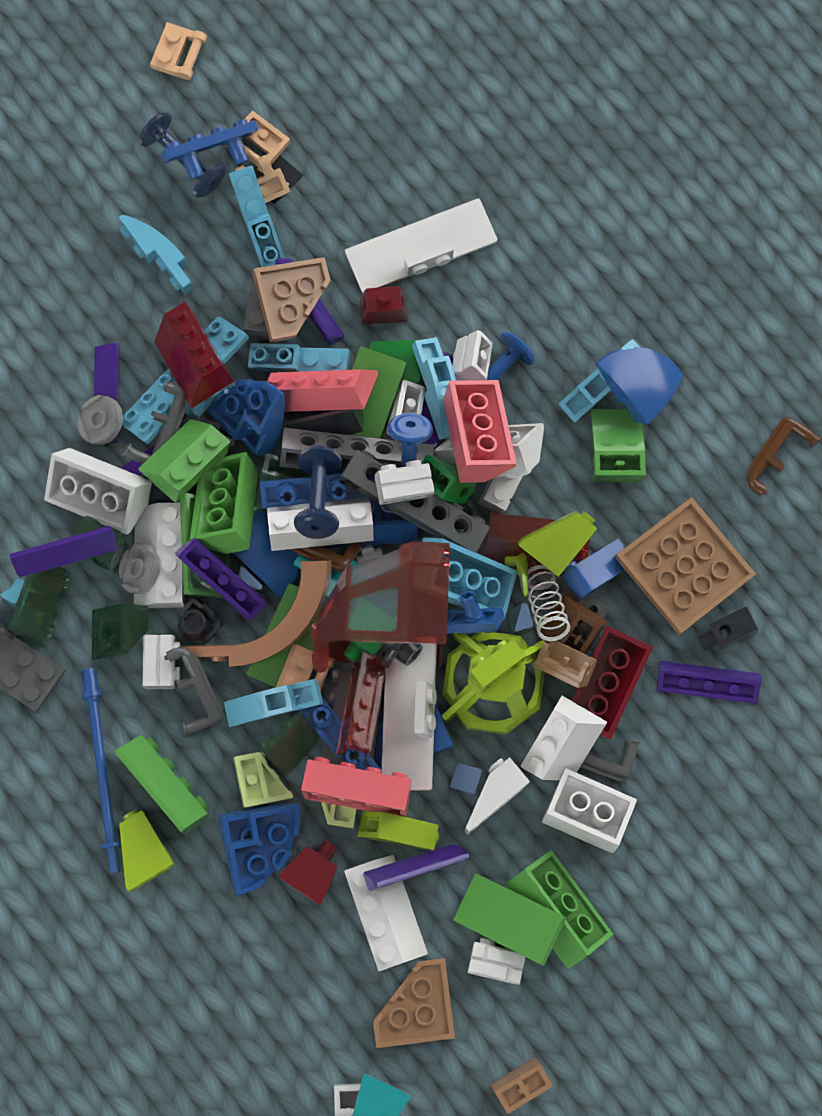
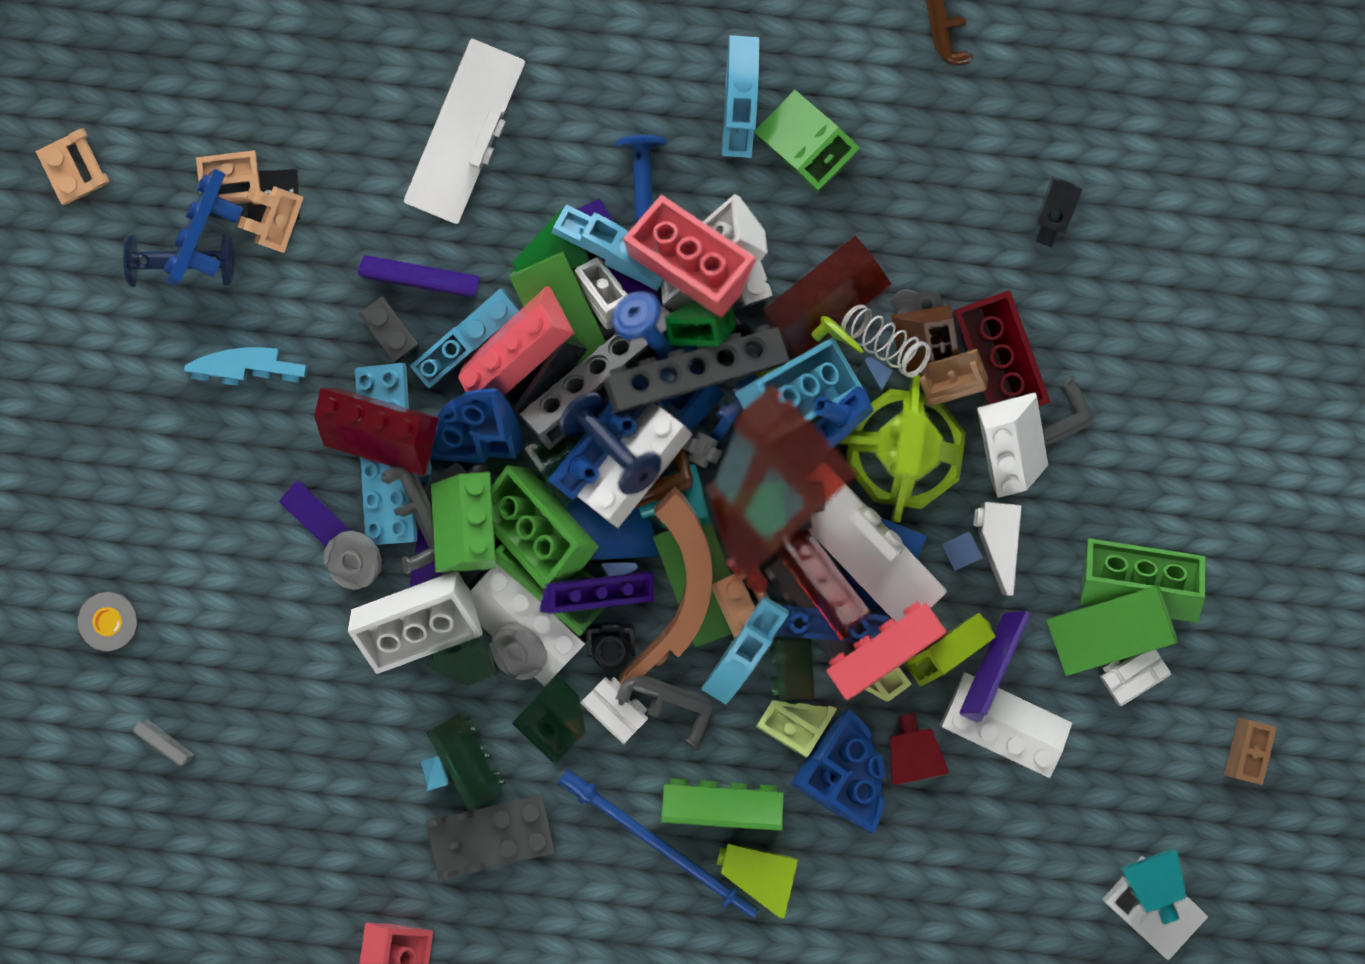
camera: 45 degrees left, 10 degrees up
(64, 551) = (451, 703): dark purple slope -> none
(256, 216) = (301, 250): medium azure slope -> none
(289, 294) = (404, 293): medium nougat plate -> none
(383, 305) = (488, 219): dark red torso -> none
(404, 482) = (676, 365): white brick -> none
(417, 1009) = (1108, 774): medium nougat plate -> none
(472, 357) = (613, 192): white brick -> none
(559, 541) = (846, 279): lime slope -> none
(589, 811) = (1089, 477): white slope -> none
(594, 570) = (897, 266): door -> none
(640, 380) = (775, 66): blue brick -> none
(685, 566) = (966, 190): medium nougat plate -> none
(708, 682) = (1079, 268): dark purple slope -> none

